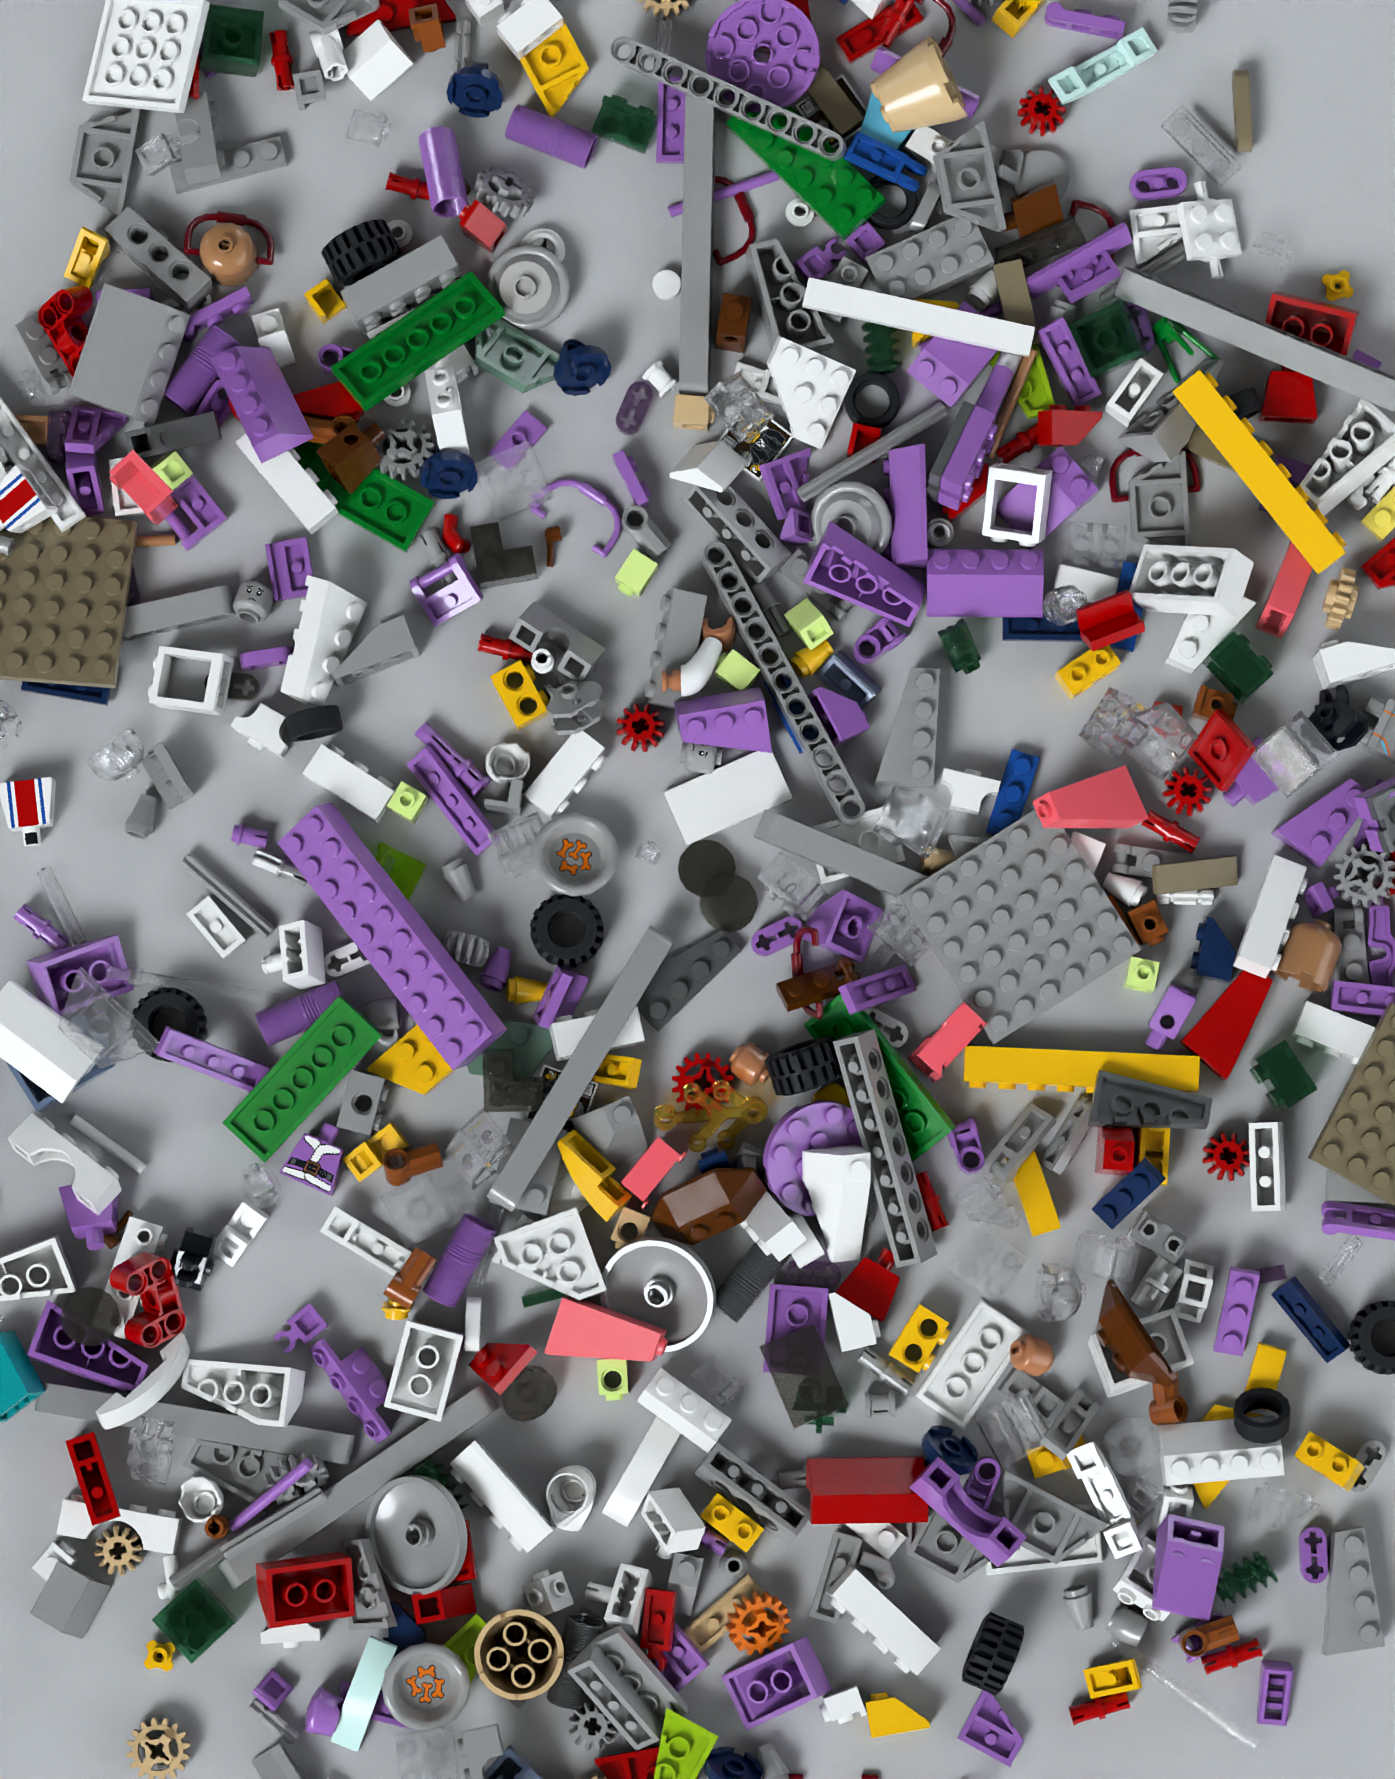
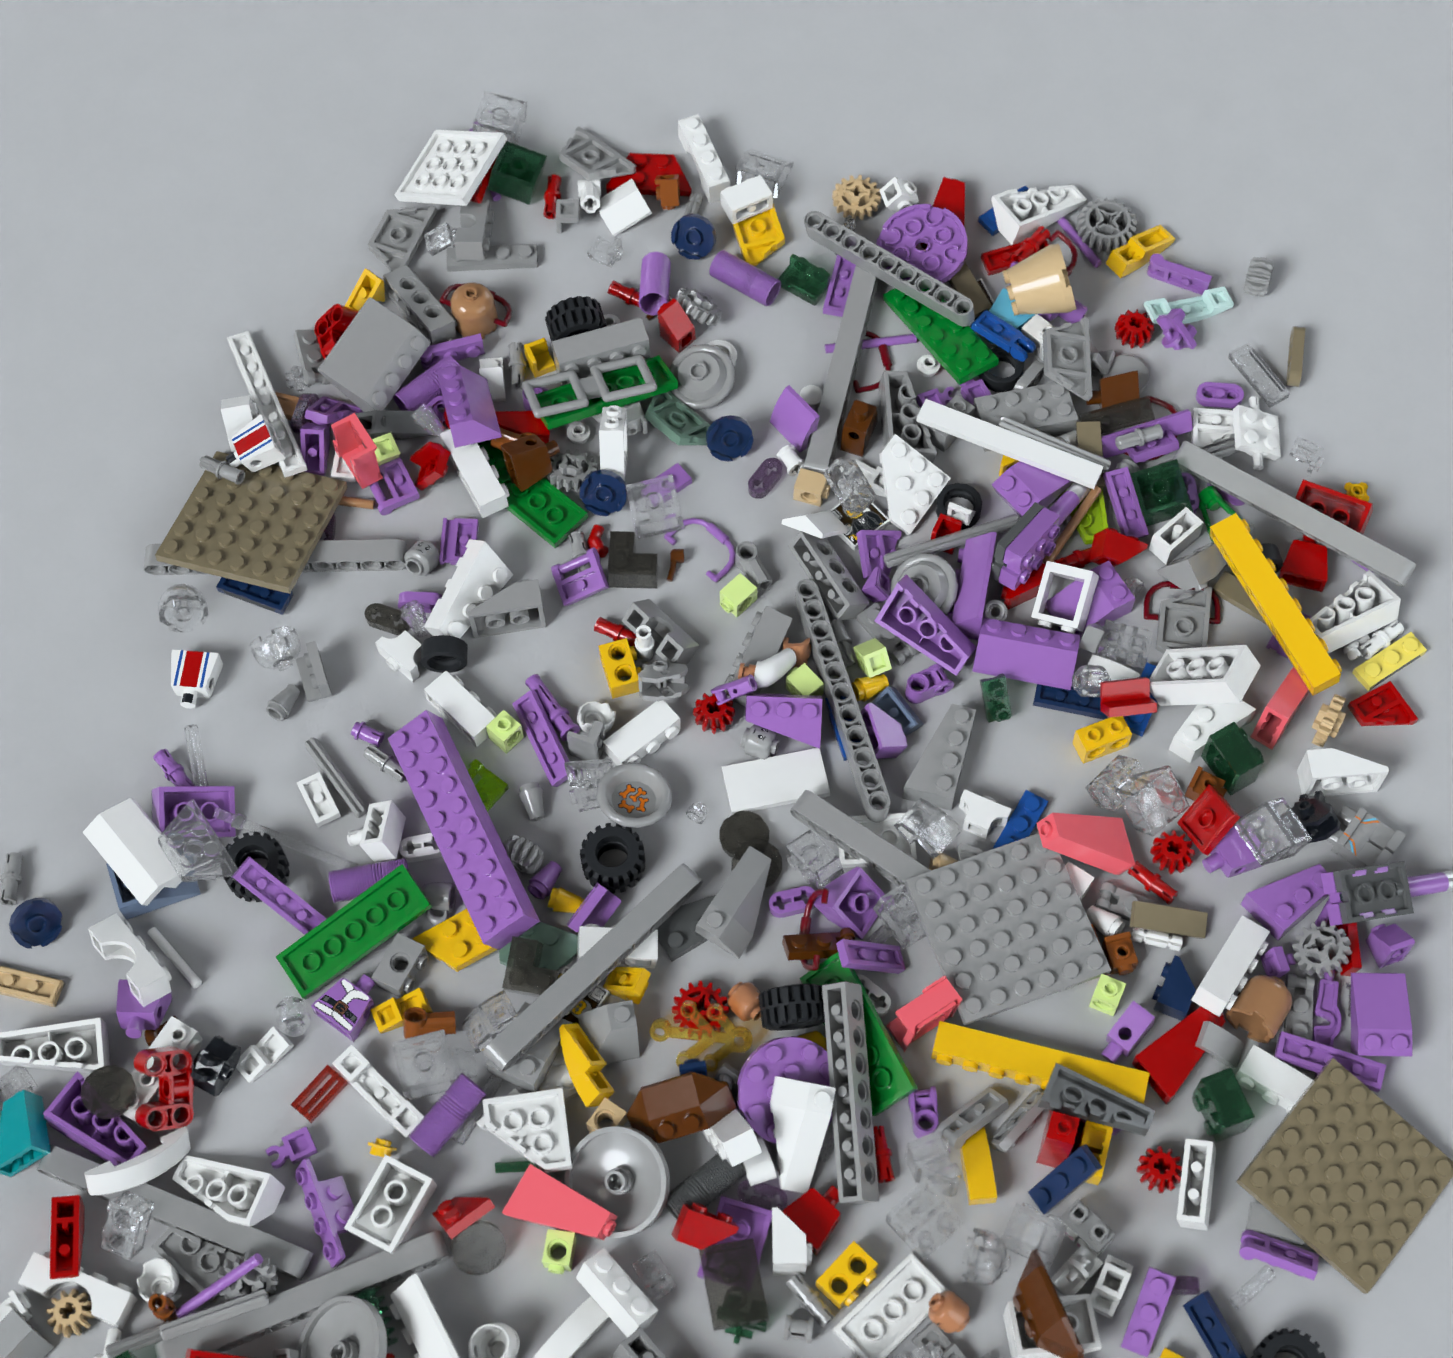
camera: 10 degrees right, 20 degrees down
(215, 426) = (428, 420): none -> clear cone
(217, 682) = (371, 614): white window -> none
(235, 481) = (433, 463): none -> red bracket
(265, 680) = (415, 617): none -> clear cone
(299, 315) = (517, 364): none -> light grey pin
(323, 1240) = (326, 1100): none -> clear red tile
(400, 342) = (589, 387): none -> light grey bar
(407, 1283) = (393, 1125): dark orange piece -> none
(473, 1324) = (445, 1175): white beam -> none
(626, 468) = (748, 518): medium lavender plate -> none
(650, 1170) = (633, 1064): coral piece -> none
(654, 328) = (794, 418): none -> medium lavender slope
(660, 706) = (735, 688): none -> medium lavender bar
(716, 965) = (735, 908): none -> light grey wedge
(758, 1326) = (701, 1228): none -> red slope
(877, 415) = (960, 512): none -> white slope
(881, 348) = (974, 465): clear green piece -> none
(971, 305) = (1042, 437): none -> light grey axle
(1057, 547) = (1091, 637): none -> light grey slope
(1070, 272) = (1139, 437): none -> light grey axle
(1092, 113) = (1175, 332): none -> medium lavender hips
(1270, 1007) = (1220, 1043): none -> light grey slope

